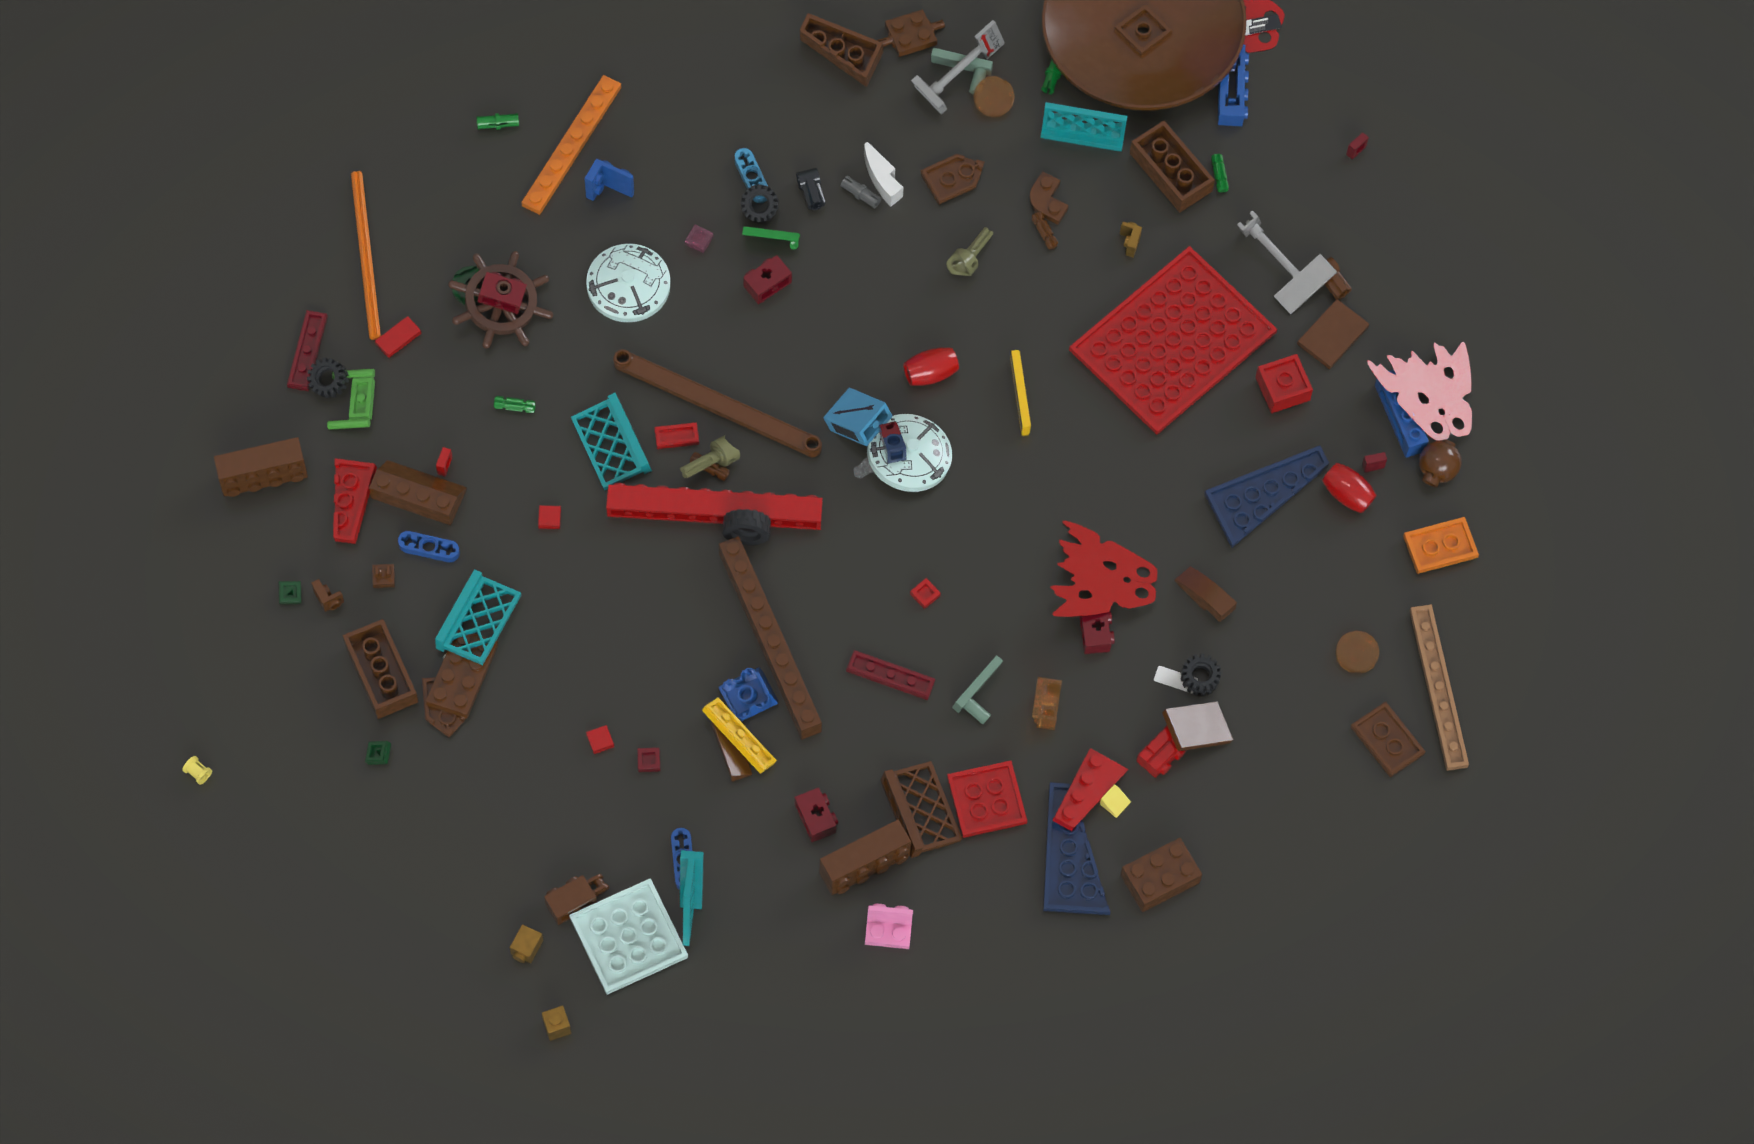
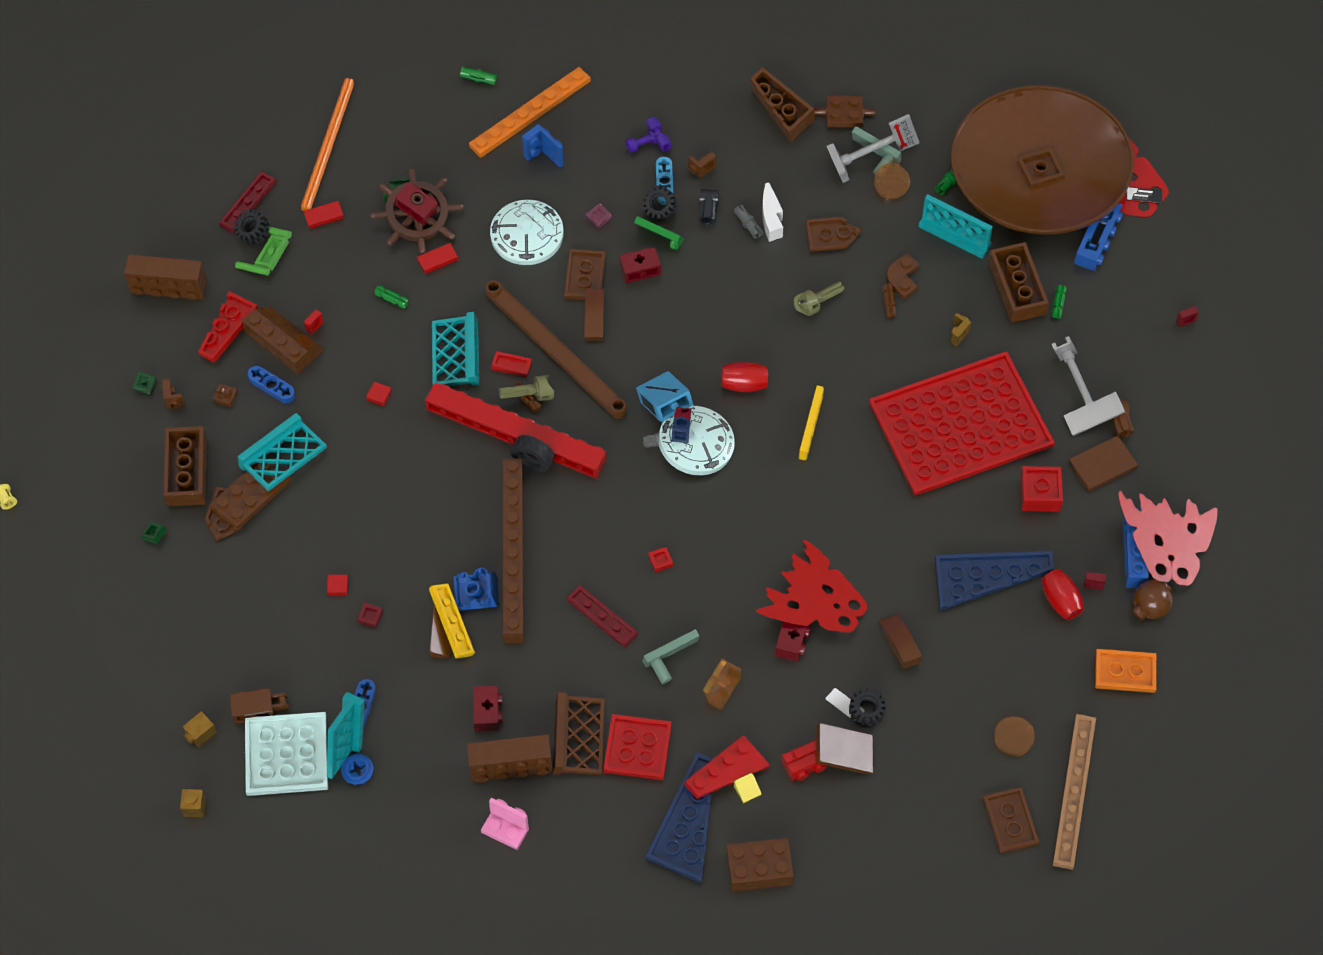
camera: 25 degrees right, 5 degrees down
(545, 344) = (437, 258): none -> red tile
(709, 916) = (362, 762): none -> blue gear
(711, 310) = (584, 272): none -> reddish brown tile
(719, 128) = (654, 136): none -> dark purple bar
(743, 351) = (594, 315): none -> reddish brown slope
(786, 145) = (703, 166): none -> reddish brown bracket

